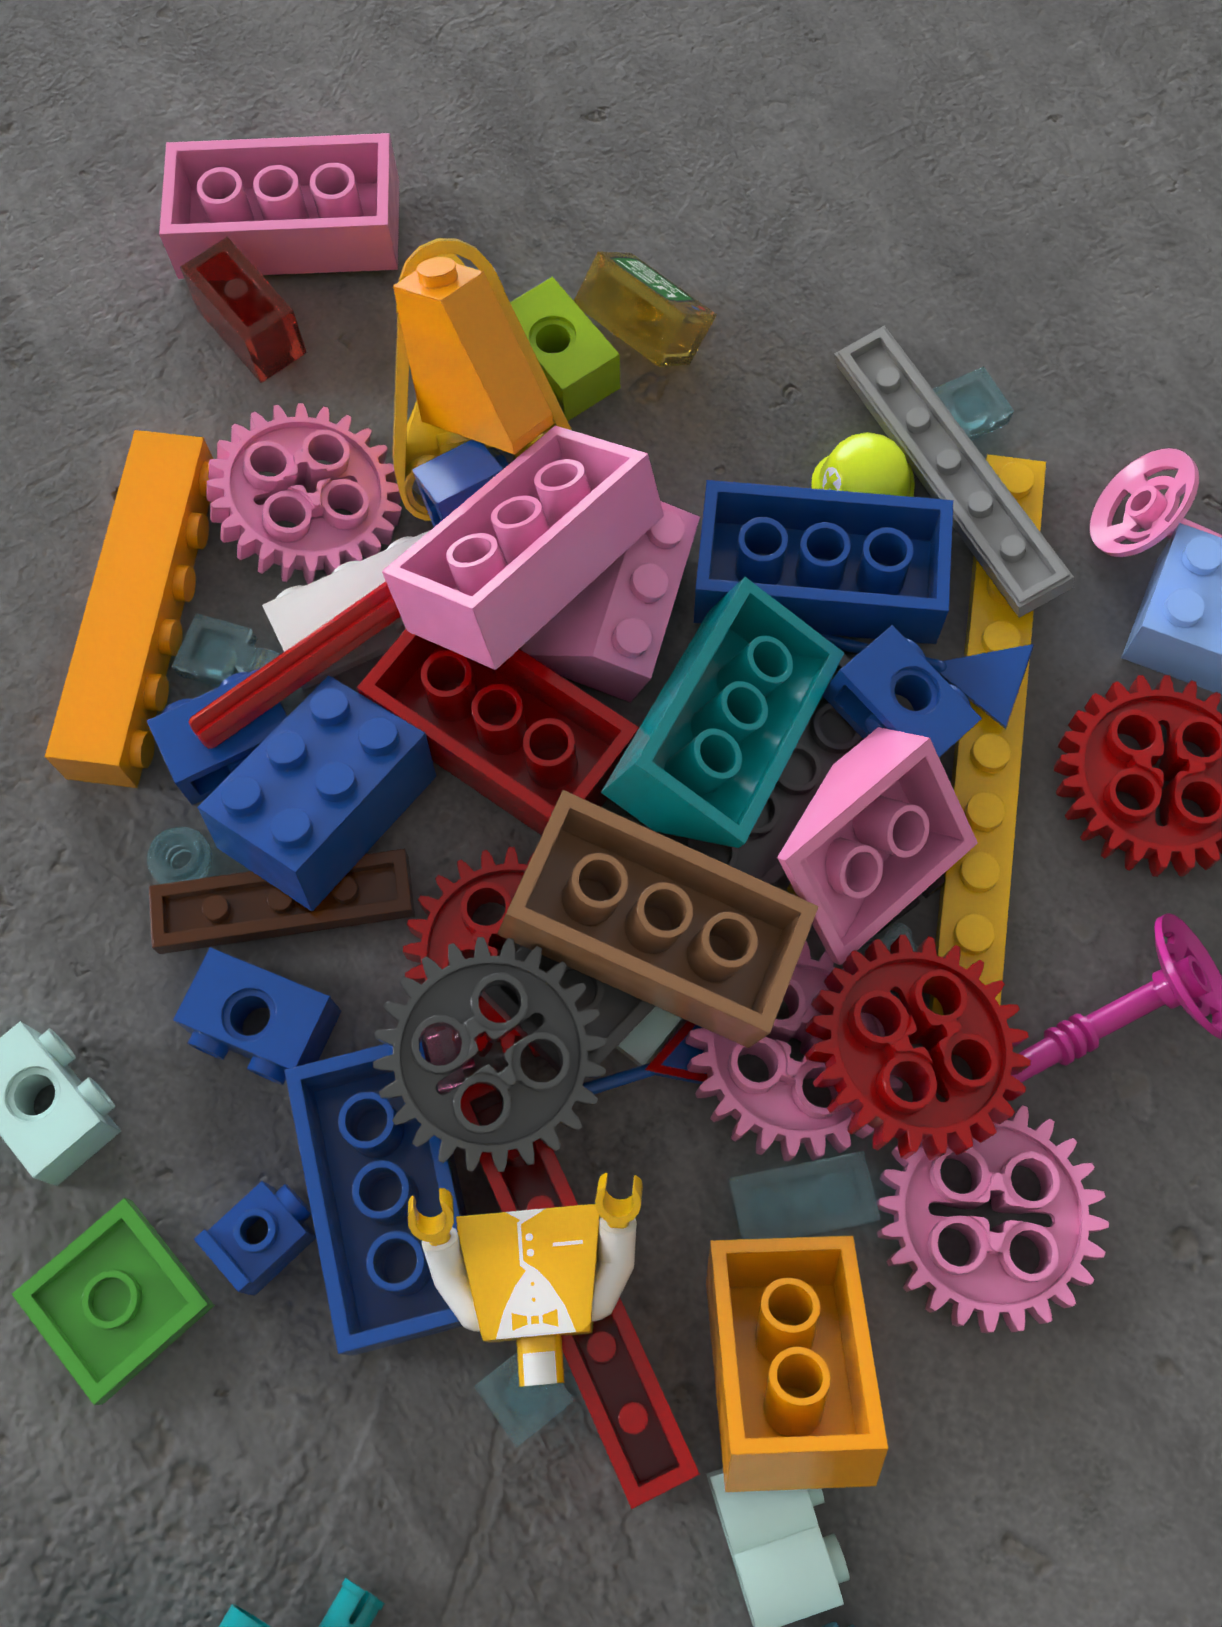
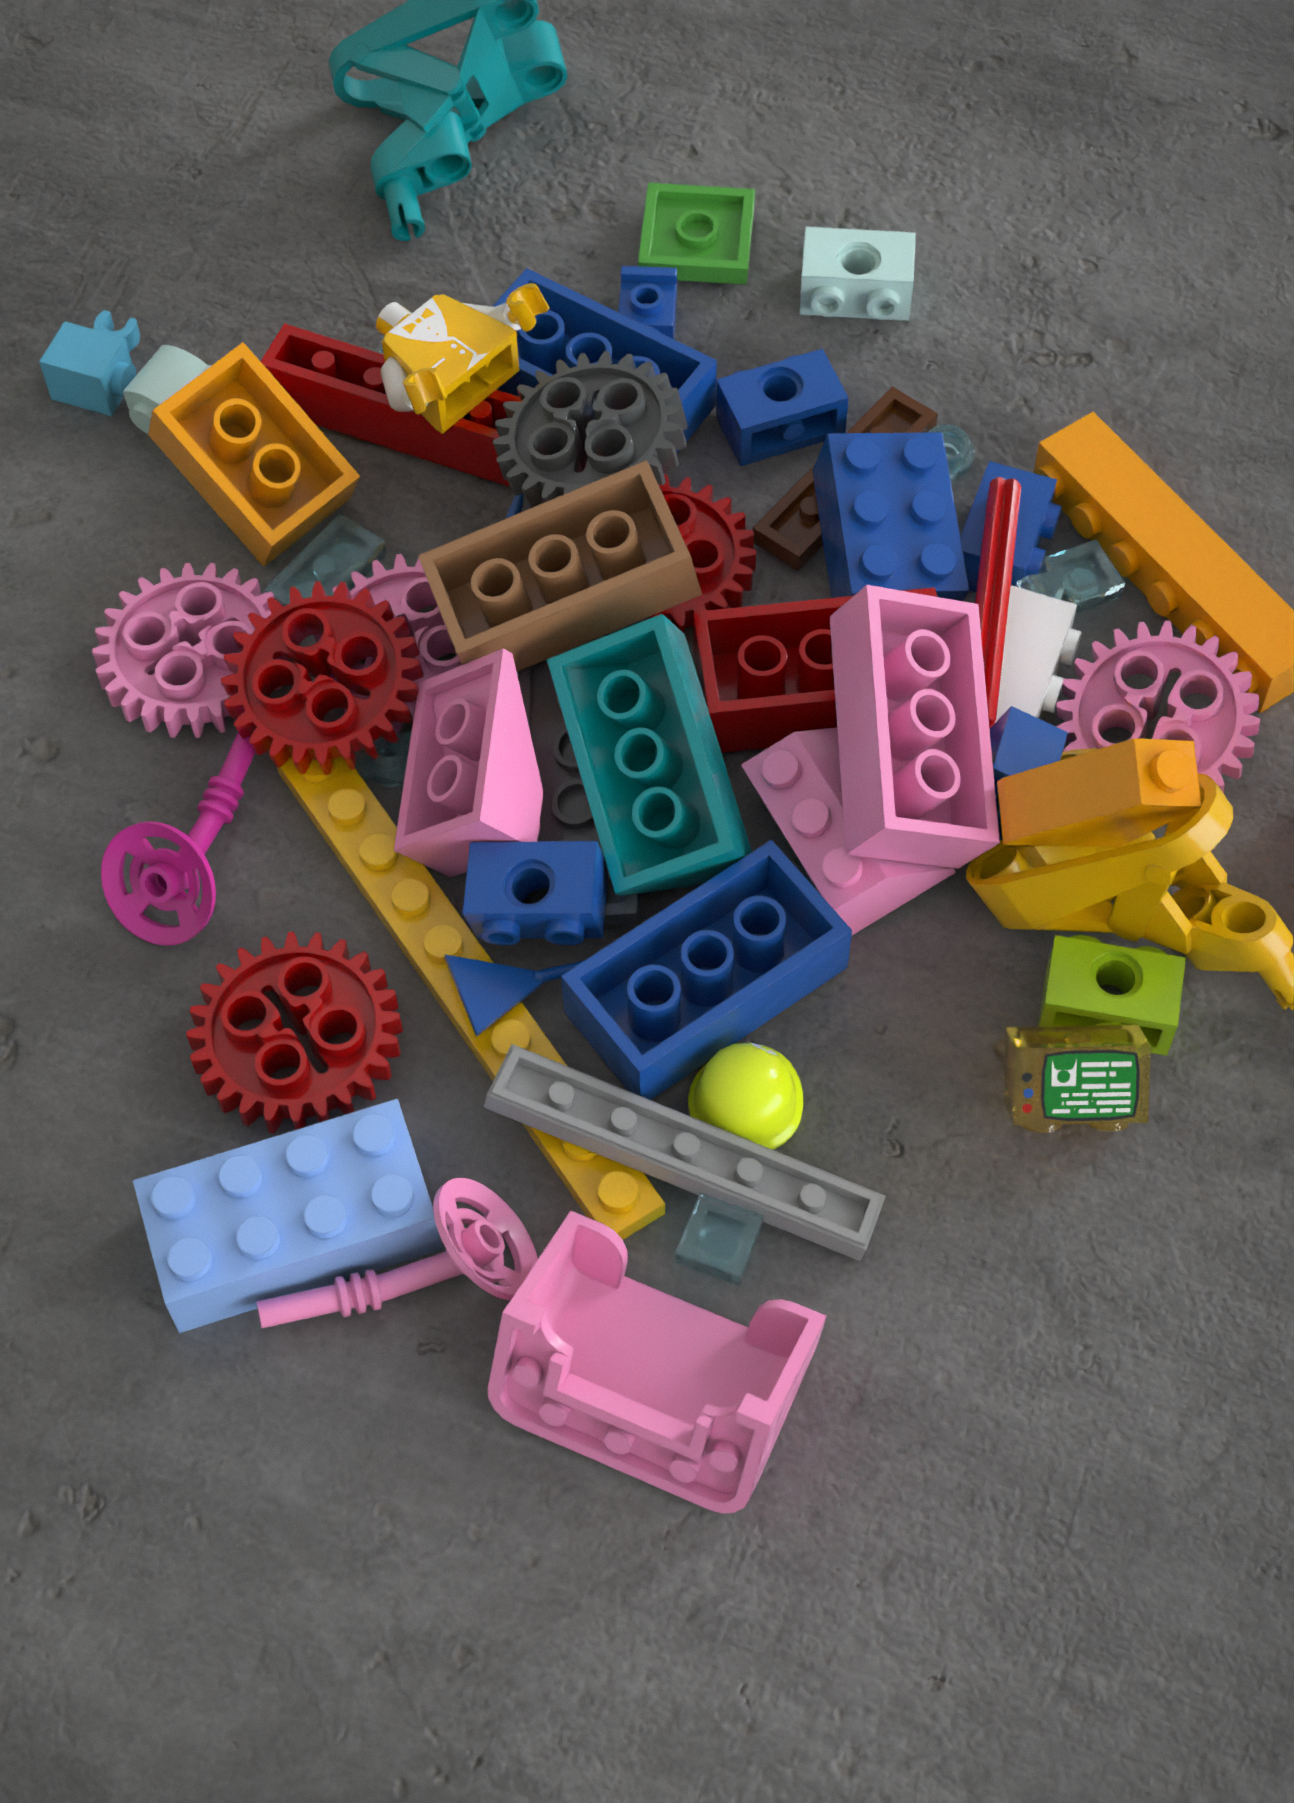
camera: 135 degrees right, 10 degrees down
(1083, 353) = (645, 1373): none -> bright pink windscreen

